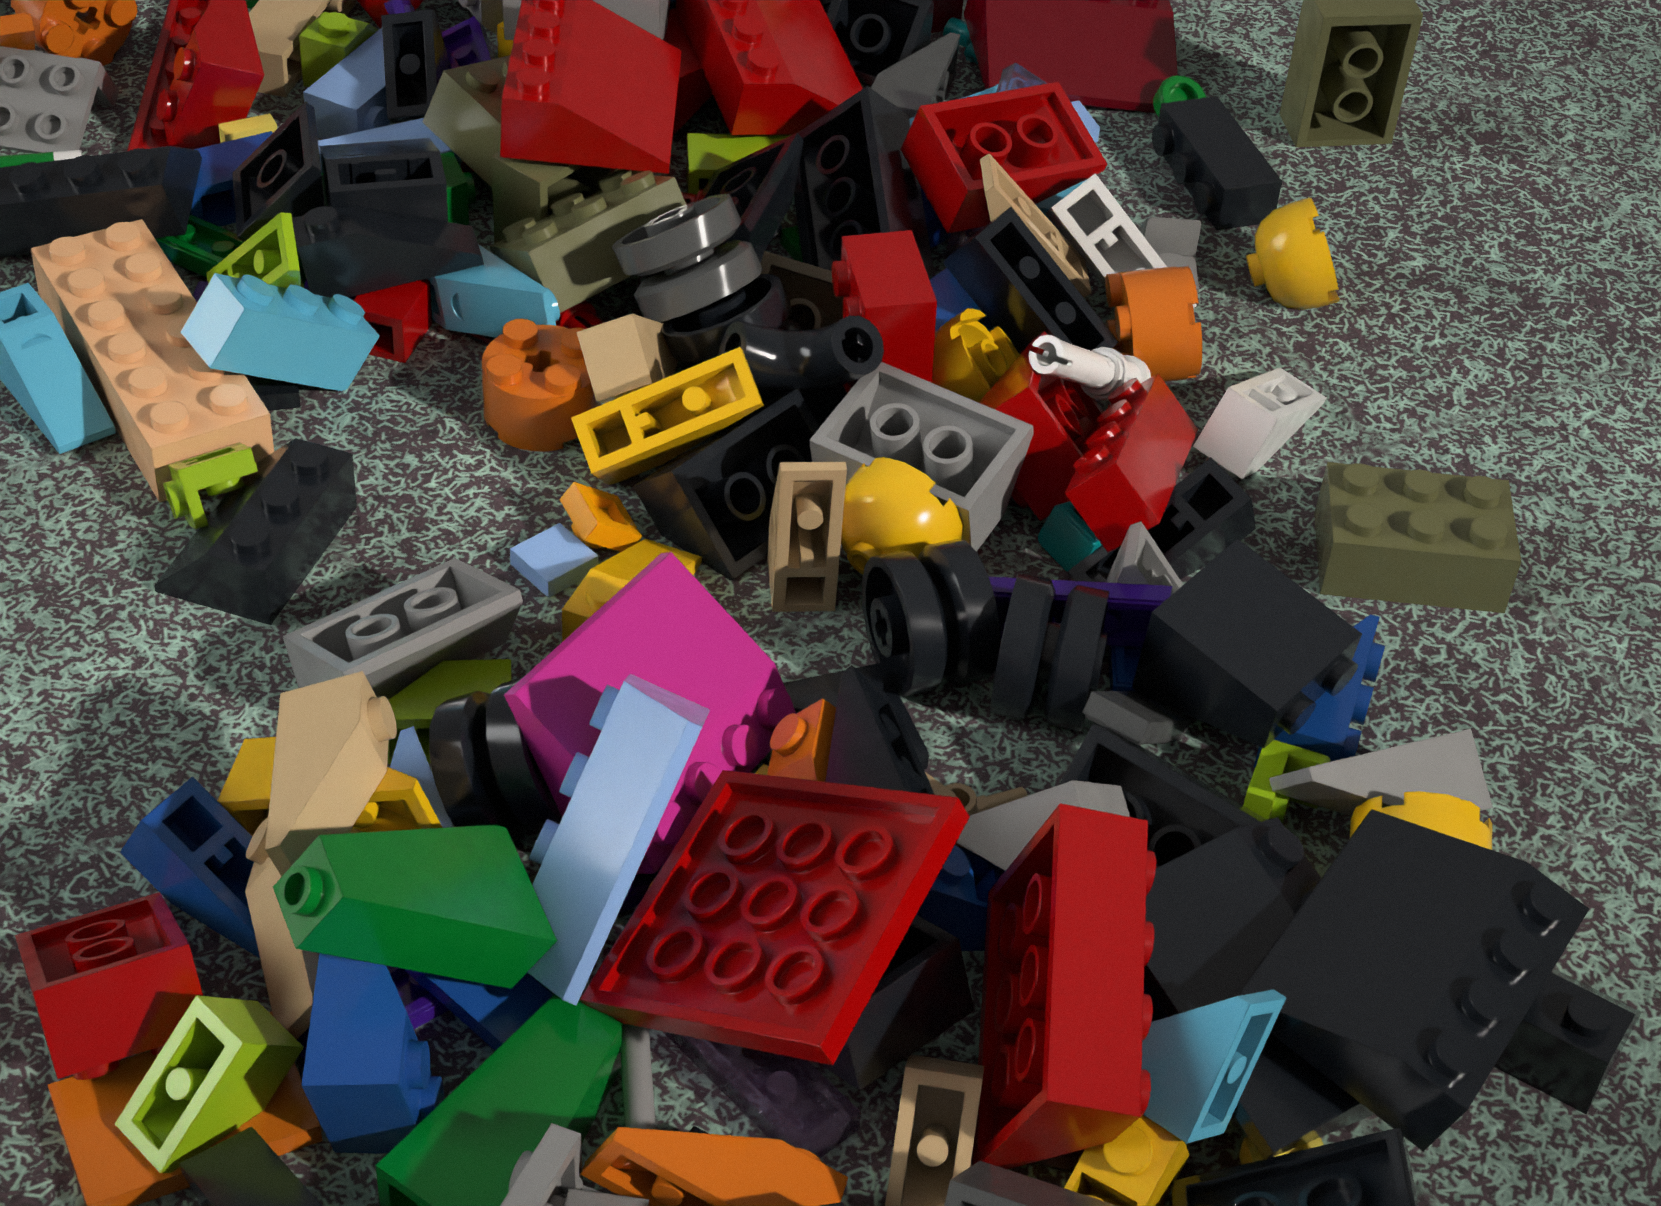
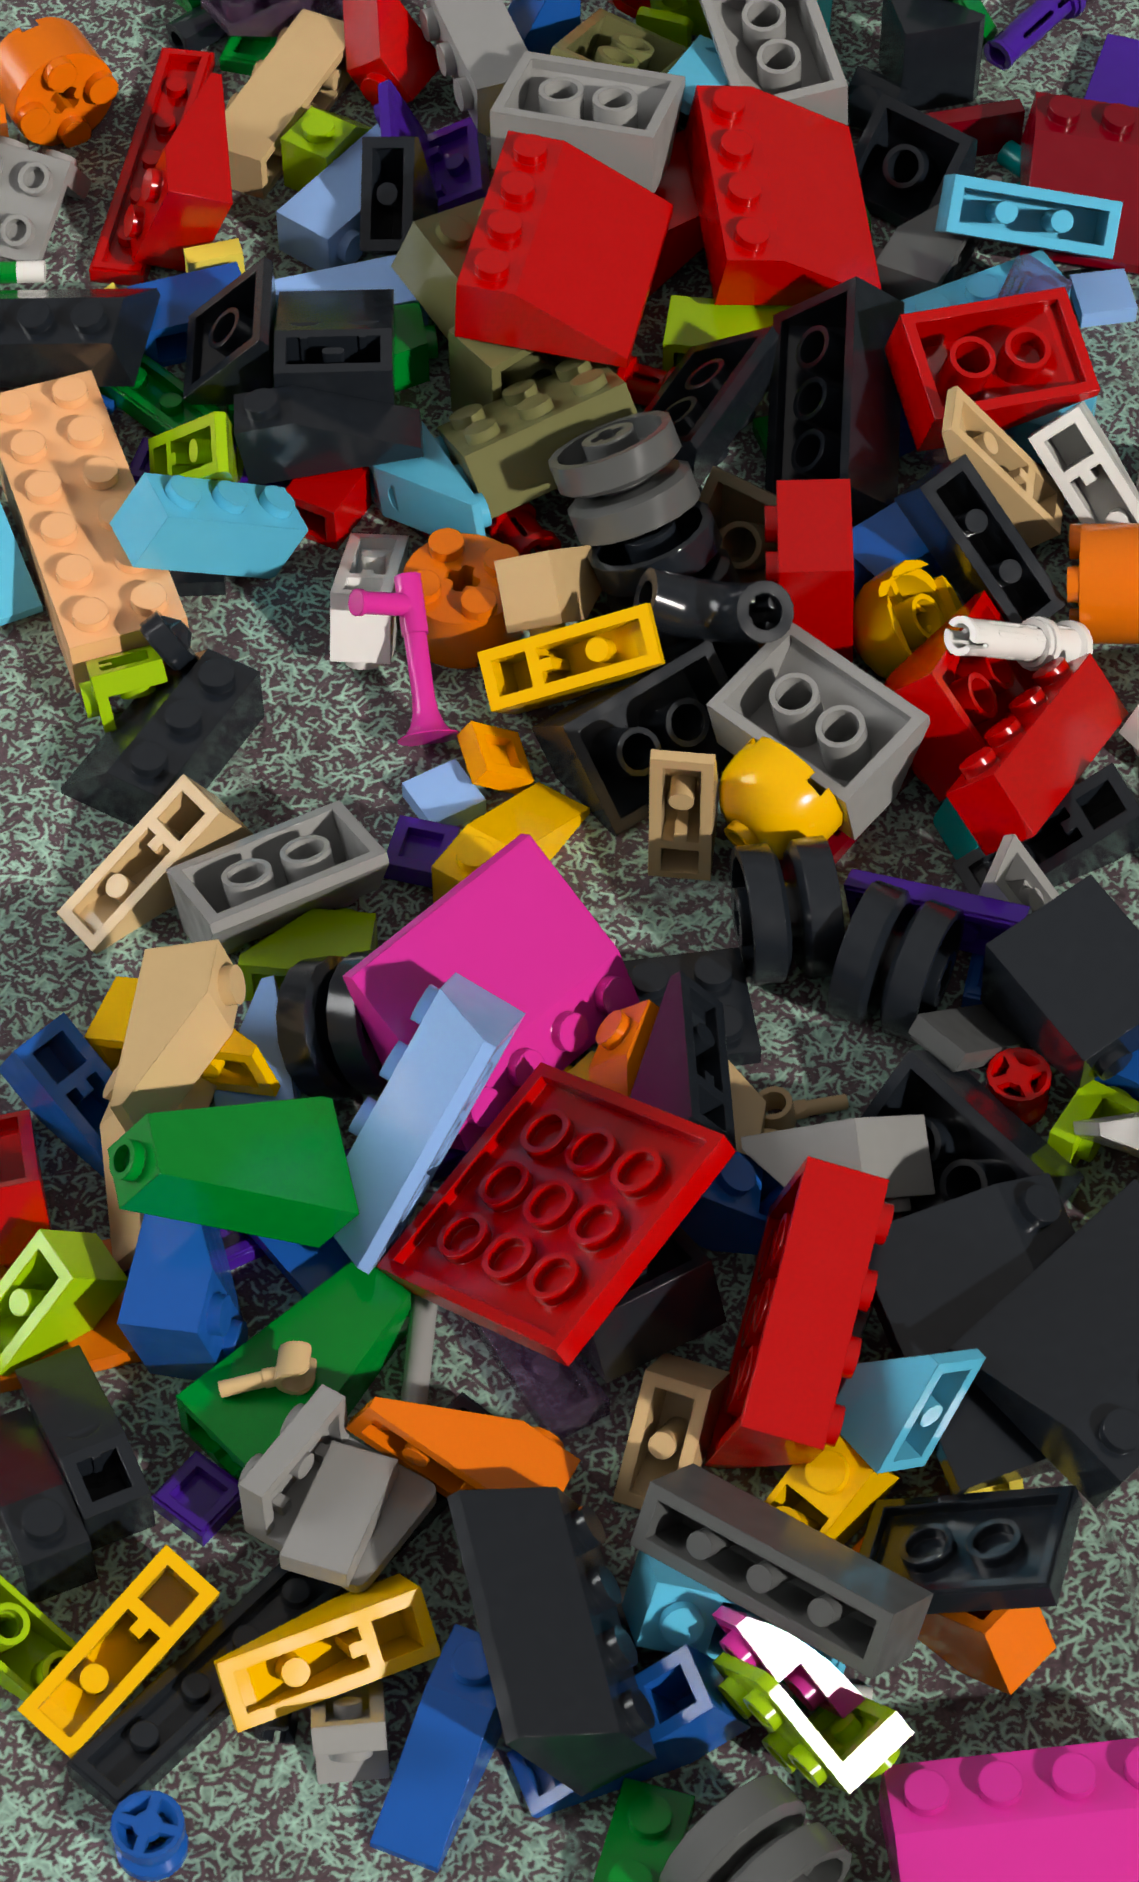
camera: 15 degrees right, 10 degrees up
(249, 654) = (133, 878): none -> tan slope
(256, 430) = (169, 639): none -> black tile
(446, 399) = (370, 565): none -> white slope
(493, 378) = (408, 603): none -> dark pink piece
(508, 1123) = (292, 1374): none -> tan hand
(541, 606) = (416, 848): none -> dark purple plate
(983, 45) = (1028, 216): none -> medium azure brick
(1197, 750) = (1025, 1073): none -> red wheel

